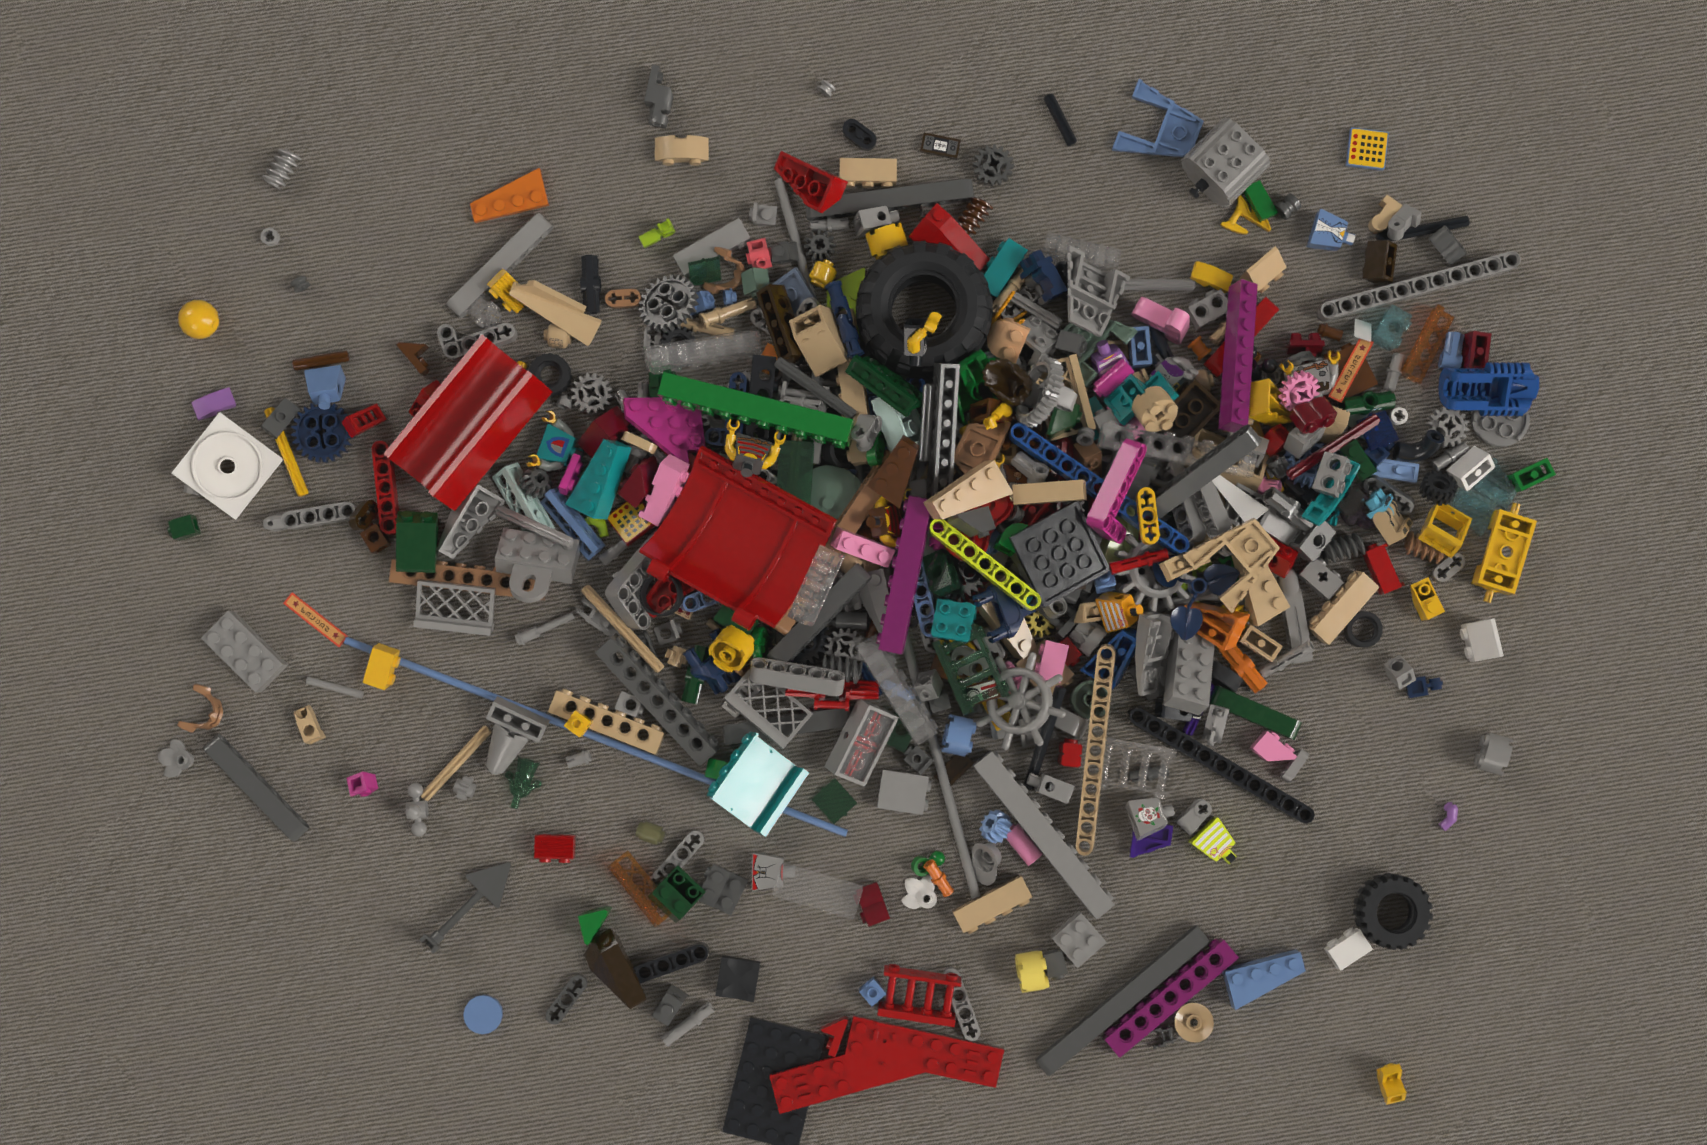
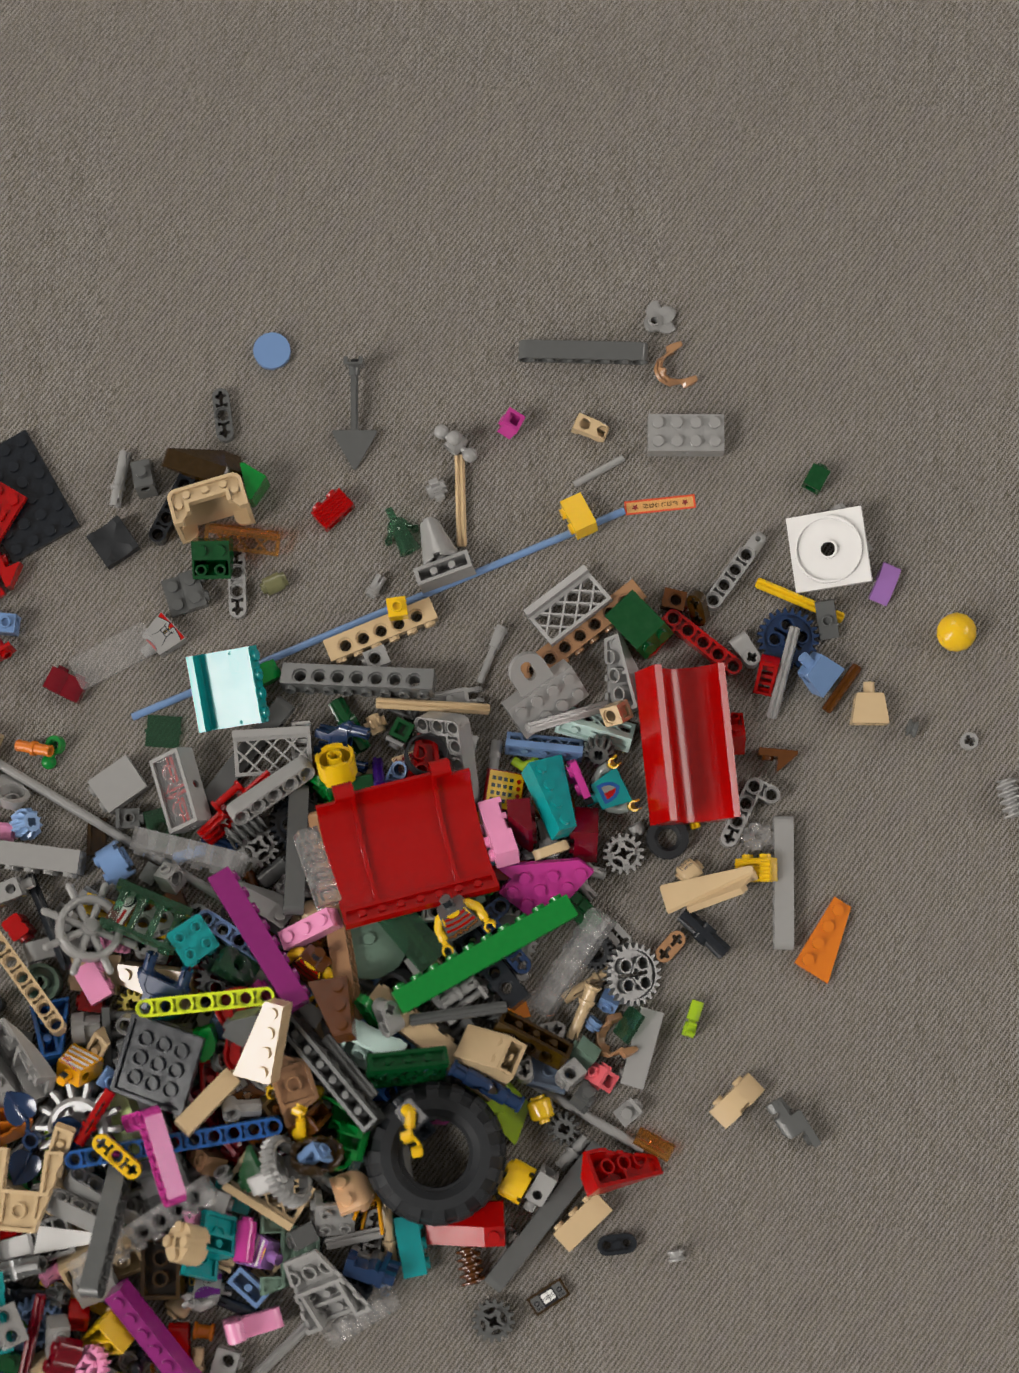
camera: 140 degrees right, 5 degrees down
(315, 327) = (869, 707): none -> tan torso
(349, 409) = (783, 672): none -> light grey axle
(360, 455) = (743, 647): none -> light grey piece
(497, 495) = (616, 713): none -> tan brick
(637, 938) = (209, 502): none -> tan windscreen
(661, 632) = (401, 730): none -> dark green brick
(708, 616) = (378, 771): none -> dark purple axle
(768, 175) = (653, 1144): none -> clear orange plate
(771, 274) = (575, 1069): none -> light grey brick
(917, 891) = (41, 725): white plate -> none
(1005, 383) = (315, 1152): none -> medium blue bracket

